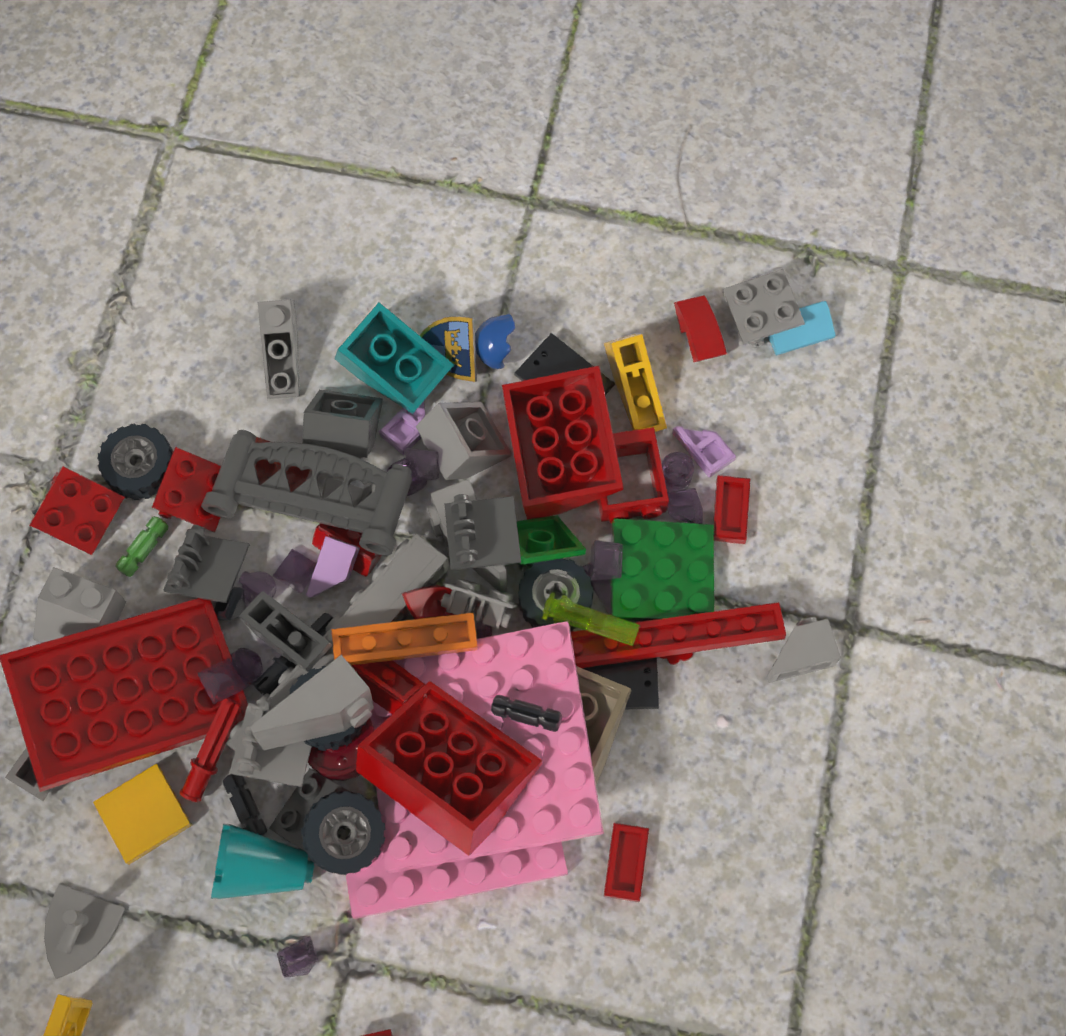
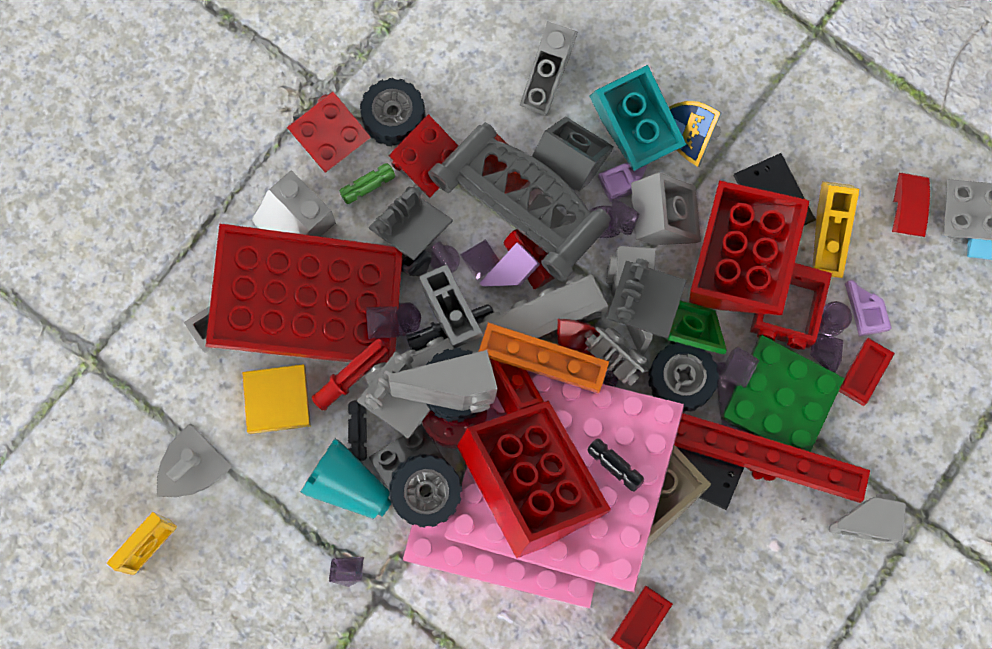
camera: 25 degrees right, 5 degrees up
(491, 340) = (727, 138): blue hair -> none
(590, 620) = (703, 411): clear neon green piece -> none

